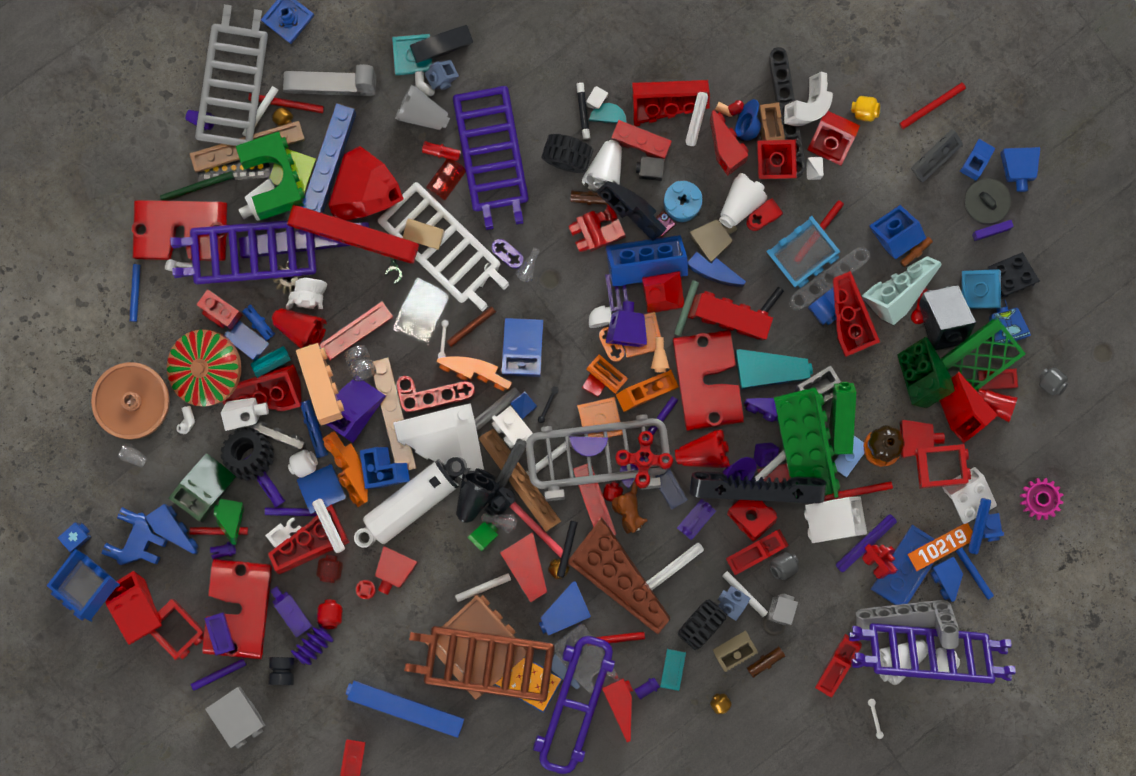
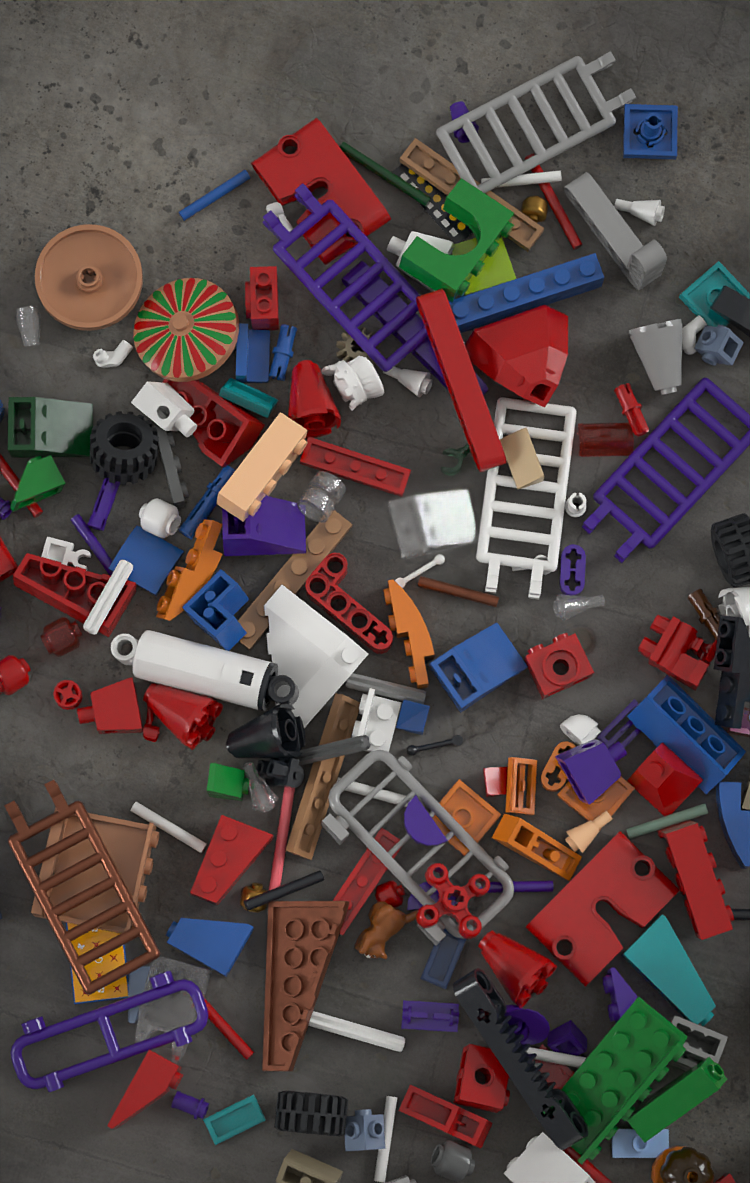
camera: 50 degrees right, 5 degrees down
(332, 260) = (415, 381): none -> white cone
(333, 54) = (648, 210): none -> white cone
(421, 558) = (149, 731): none -> red hand
(426, 531) = (184, 713): none -> red cone
(472, 228) = (571, 509): none -> white pin
(549, 292) = (563, 650): none -> red brick

